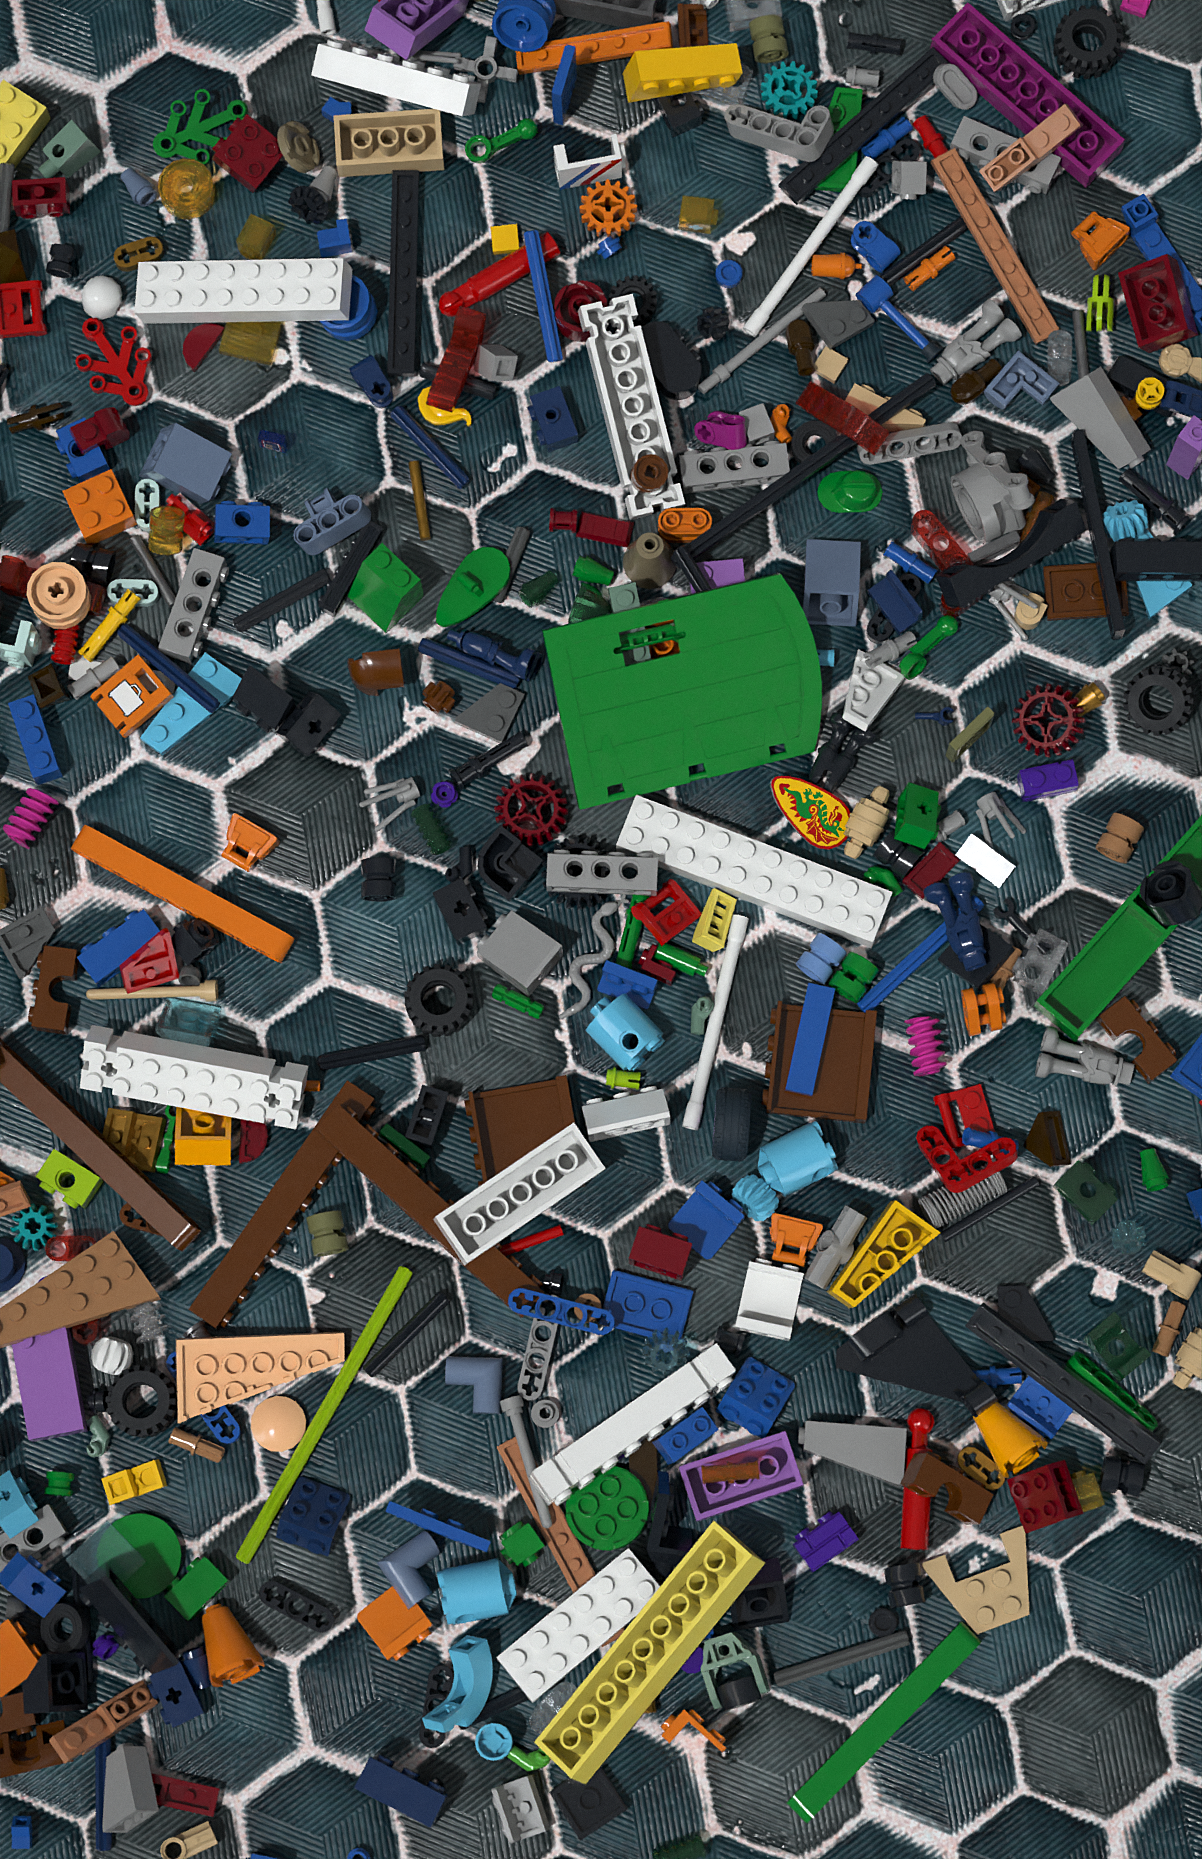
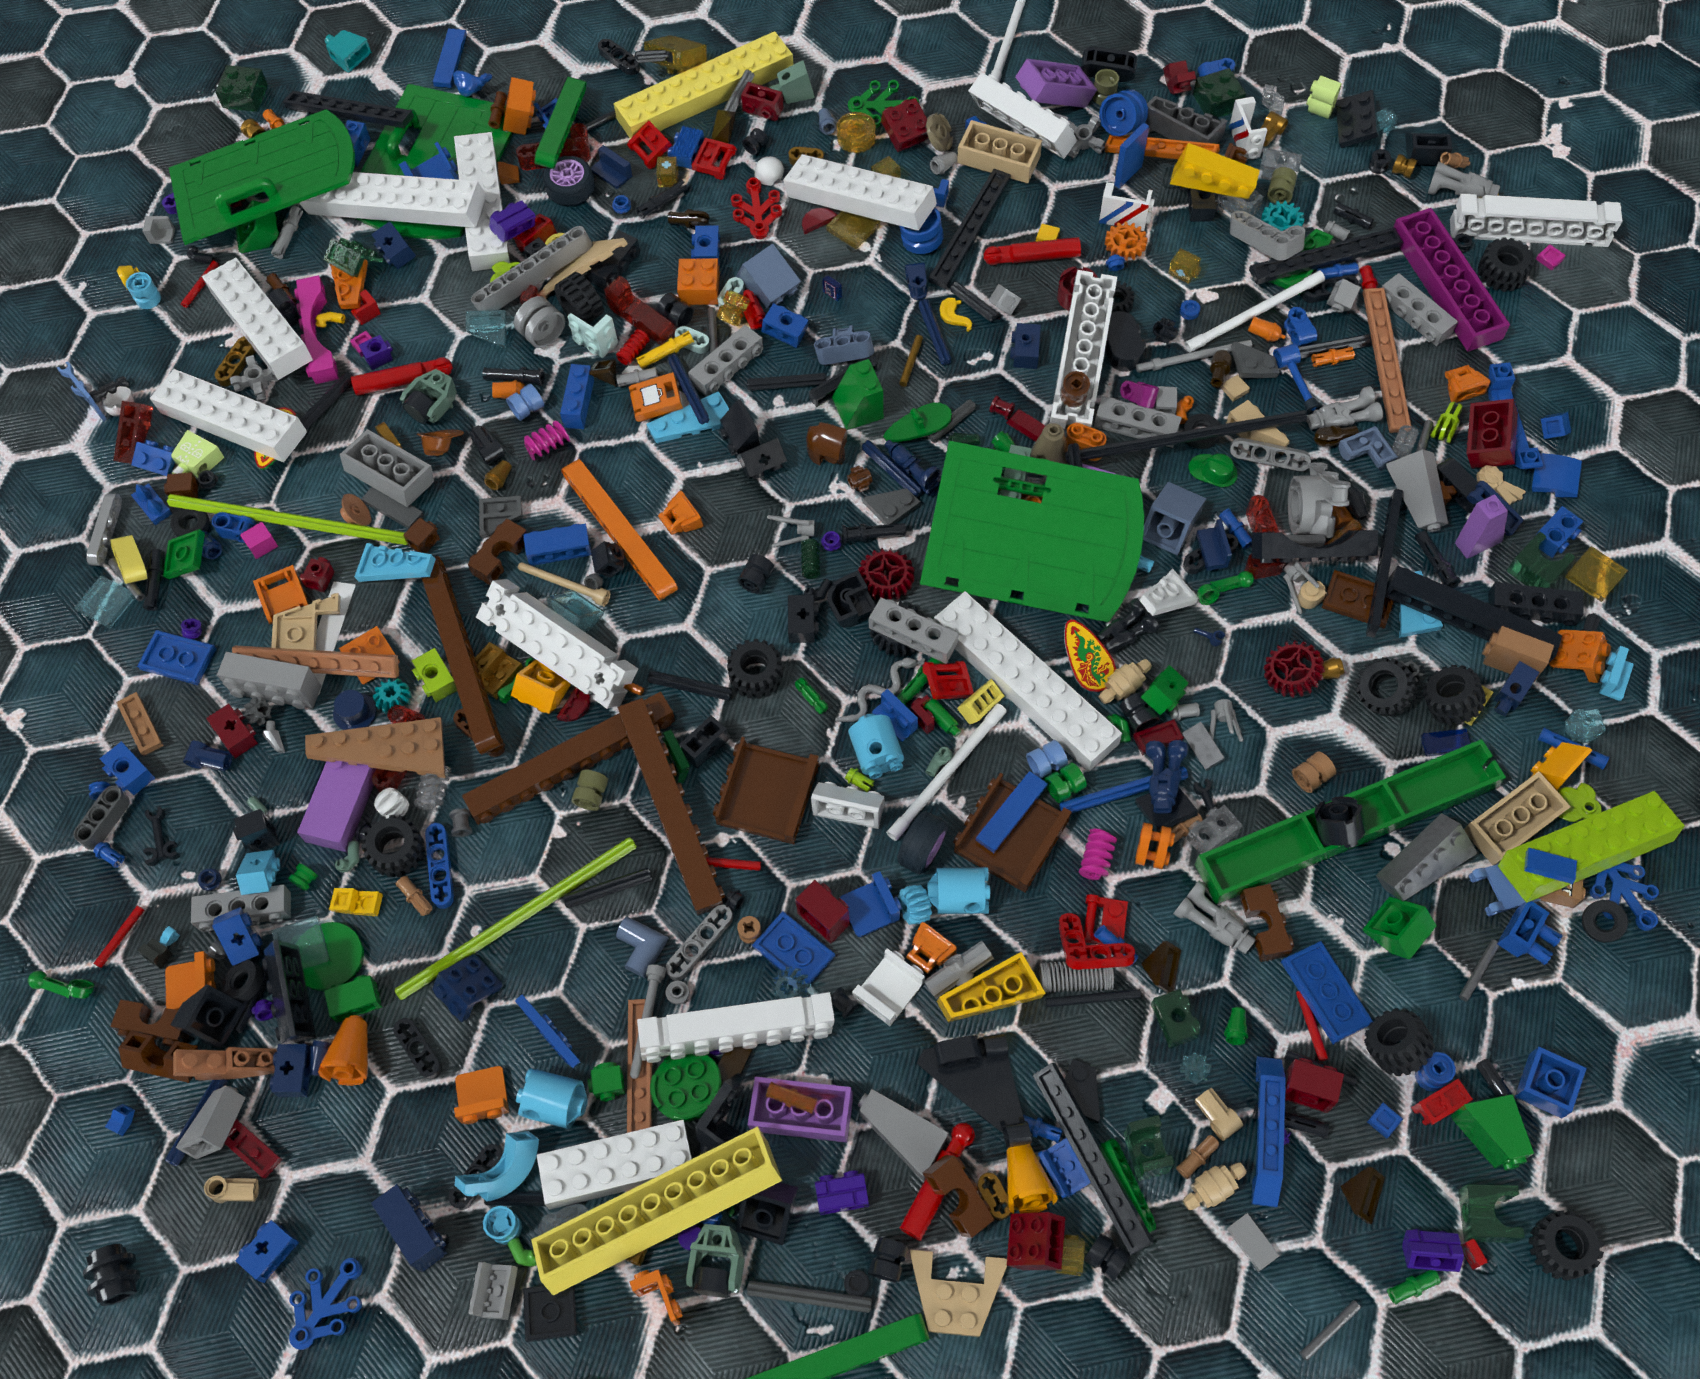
camera: 25 degrees right, 15 degrees down
(71, 591) = (640, 312): light nougat wheel -> none
(103, 429) = (727, 235): dark red brick -> none
(150, 964) = (570, 560): red wing -> none
(237, 1367) = (466, 850): light nougat wing -> none
(278, 1424) = (480, 908): light nougat dish -> none
(314, 200) = (934, 164): black gear -> none
(402, 1567) = (510, 1054): sand blue brick -> none
(457, 360) = (981, 283): clear red beam -> none
(519, 952) = (829, 663): light grey slope -> none
(519, 1194) = (738, 816): white brick -> none
(525, 129) = (1093, 179): green piece -> none
(543, 296) = (1056, 271): blue axle -> none
(561, 1308) = (728, 916): blue beam -> none
(685, 1435) = (773, 1057): blue brick -> none
(755, 1397) = (842, 1054): blue bracket -> none
(843, 417) = (1231, 412): clear red beam -> none
(889, 650) = (1195, 576): light grey pin -> none
(955, 86) = (1400, 256): light grey tile -> none
(970, 734) = (1230, 652): olive tile -> none
(1031, 148) = (1438, 305): nougat slope -> none
(1047, 780) = (1275, 710): dark purple brick -> none
(1125, 520) = (1410, 558): medium azure gear -> none
(1147, 388) = (1463, 479): yellow wheel -> none

